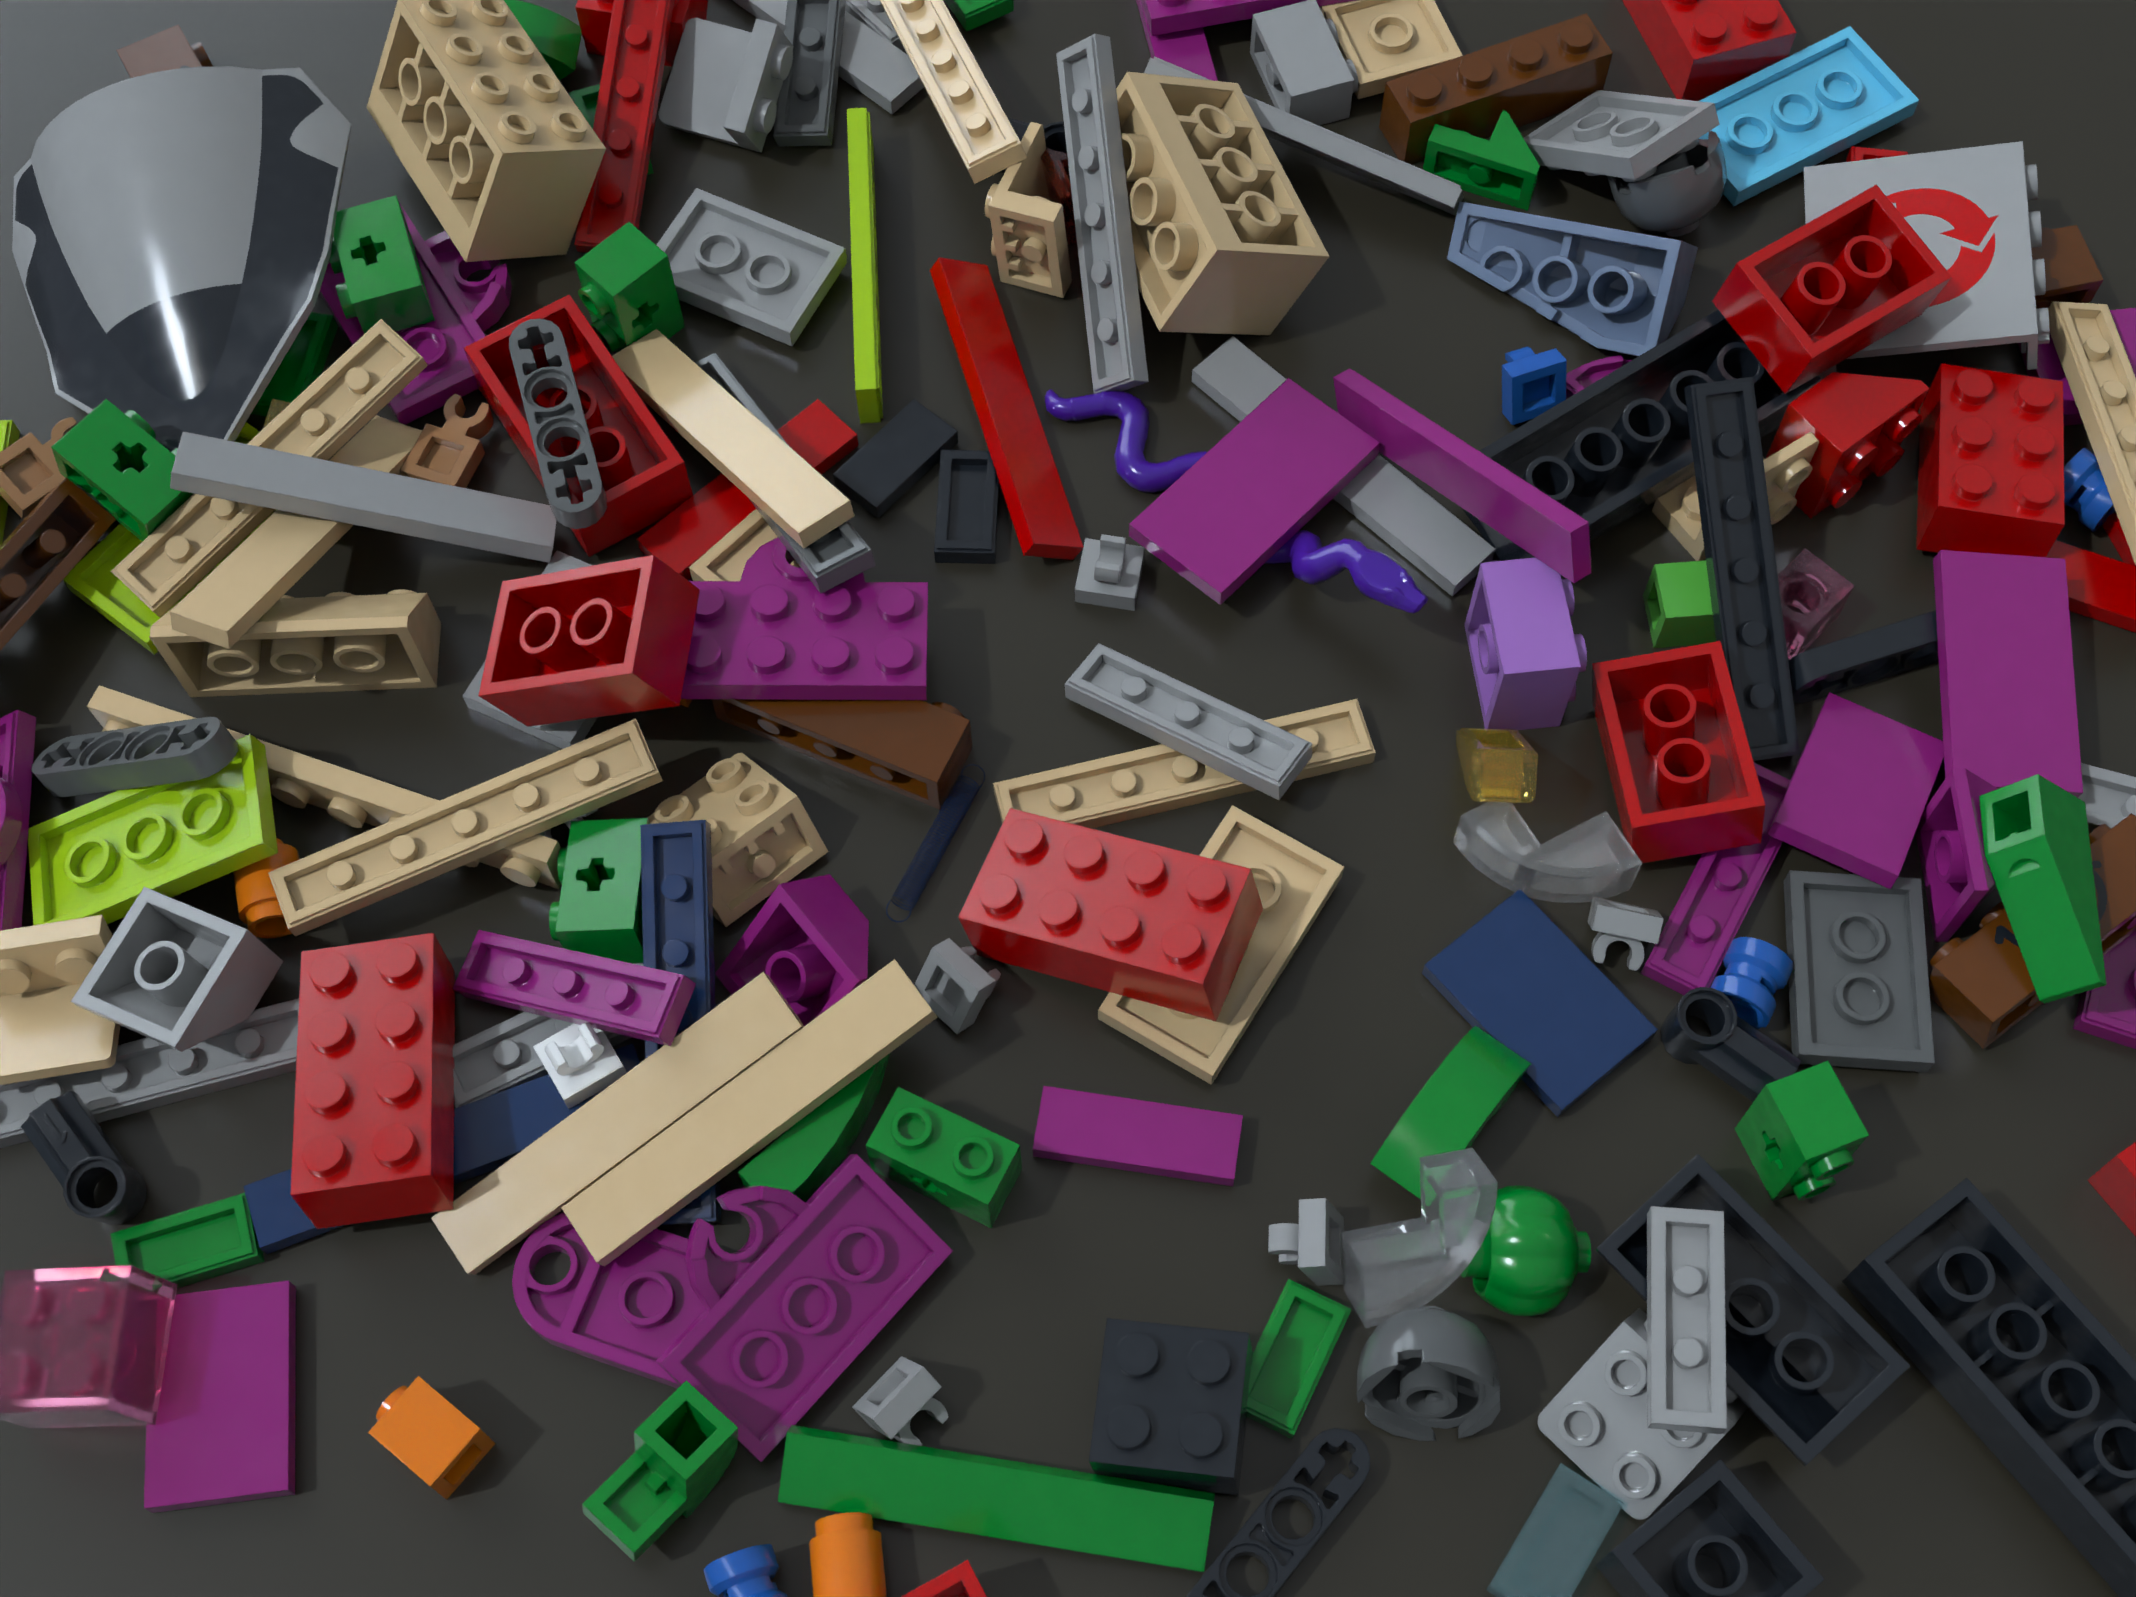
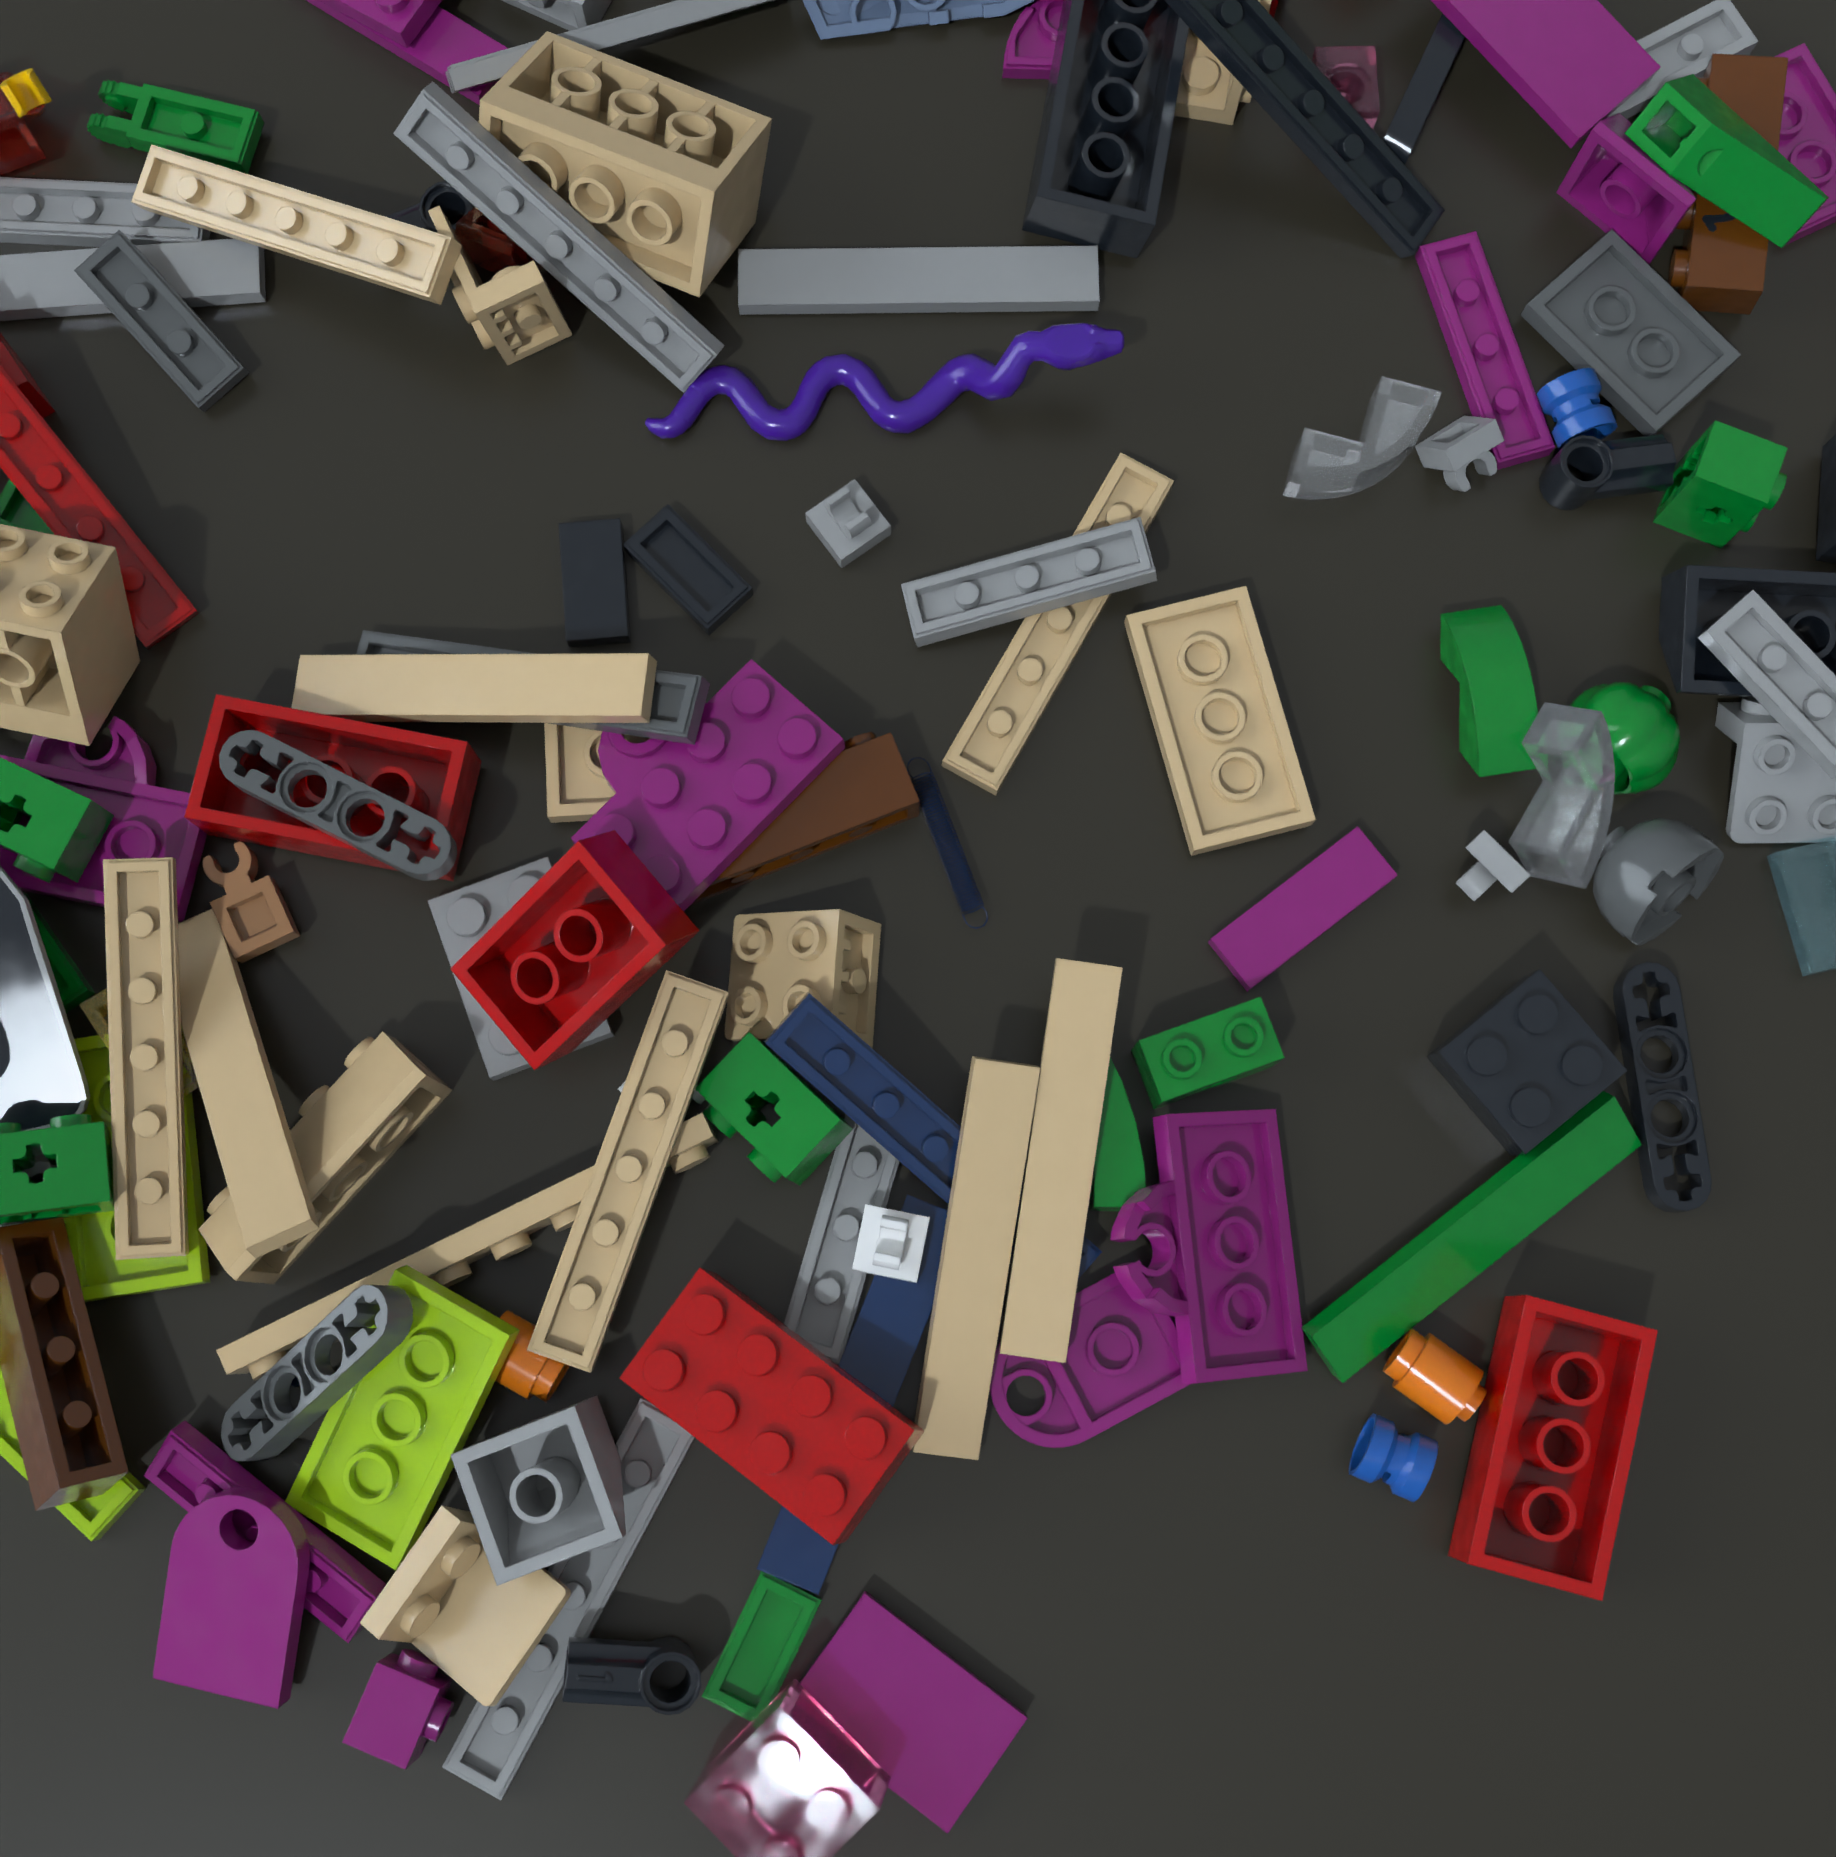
camera: 50 degrees left, 15 degrees up
(363, 497) = (249, 1012): light grey tile -> none
(430, 1436) = (1081, 1586): orange brick -> none
(575, 987) = (836, 1200): magenta tile -> none
(628, 289) = (253, 644): green brick -> none
(673, 1469) = (1261, 1441): green brick -> none
(720, 506) = (514, 753): red tile -> none
(727, 82) = (114, 396): light grey bracket -> none
(749, 266) = (302, 539): light grey plate -> none
(808, 944) = (964, 1008): magenta slope -> none
(864, 266) = (397, 447): lime tile -> none
(897, 1398) = (1349, 1239): light grey tile -> none
(955, 984) = (1080, 929): light grey tile -> none
(1006, 410) = (633, 465): red tile -> none
(1113, 913) = (1142, 774): red brick -> none
(1253, 490) = (892, 360): magenta tile -> none
(1292, 1356) = (1544, 939): green tile -> none
(1468, 477) = (1047, 209): magenta tile -> none
(1497, 765) = (1274, 409): clear yellow slope -> none
(1523, 644) = (1204, 302): medium lavender brick -> none
(1532, 383) = (992, 87): blue tile -> none
(1541, 1000) = (1454, 554): dark blue tile -> none
(1677, 752) = (1384, 285): red brick -> none
(1679, 605) = (1265, 168): bright green brick -> none
(1858, 790) = (1512, 200): magenta tile -> none

